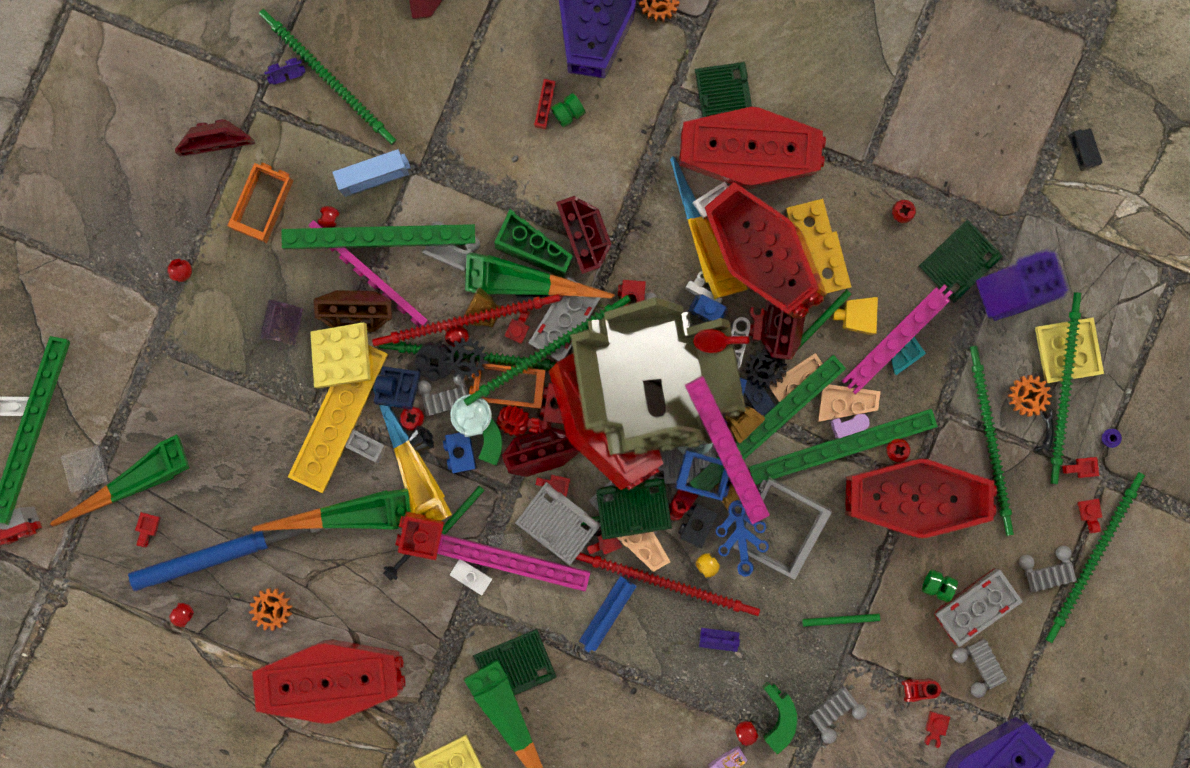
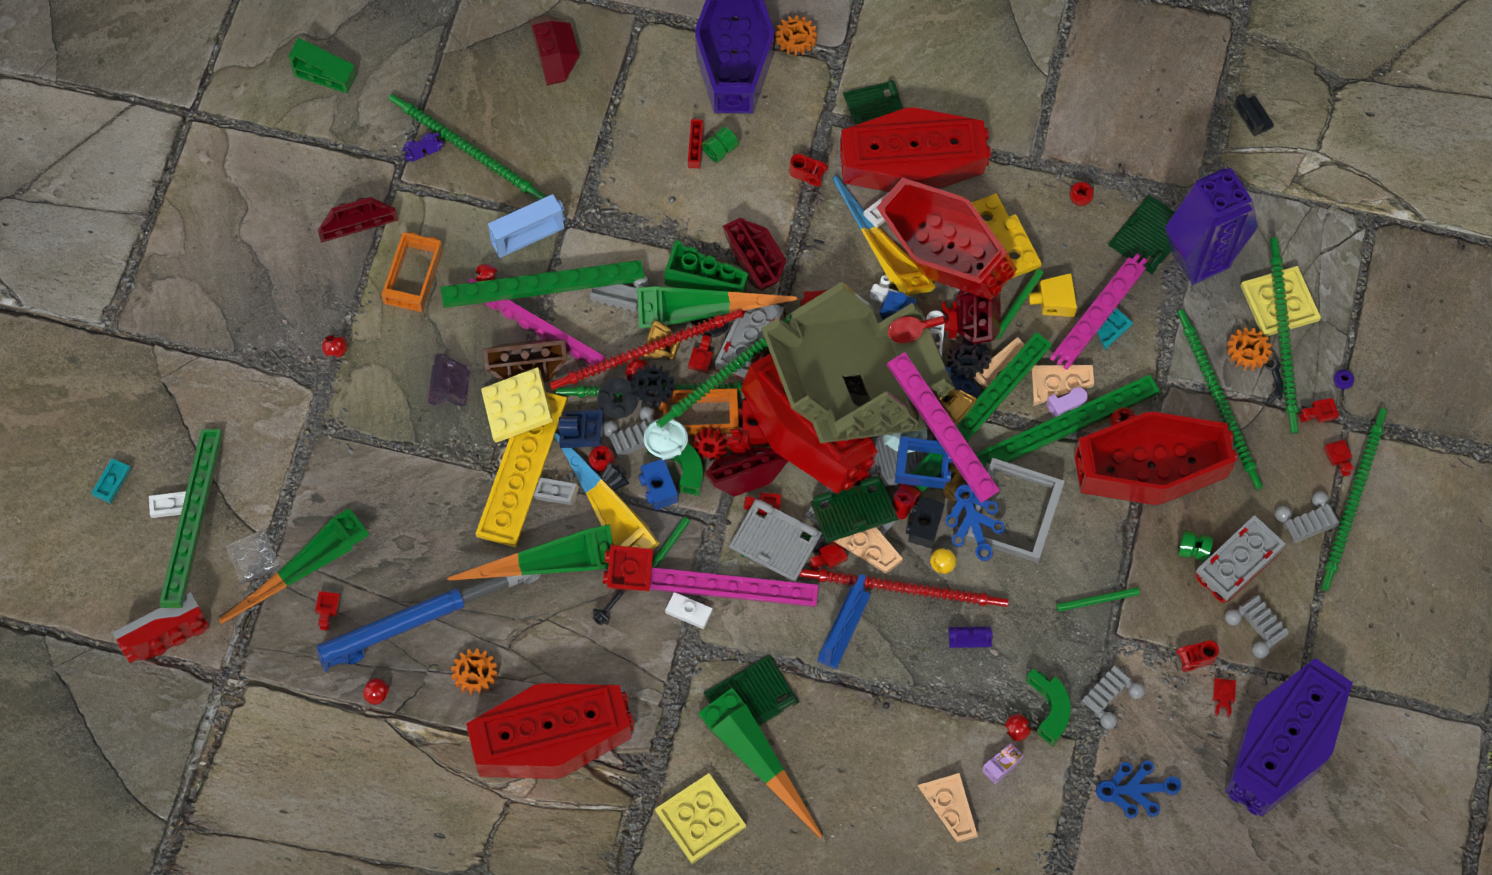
camera: 10 degrees left, 20 degrees down
(648, 149) = (808, 170): none -> red piece

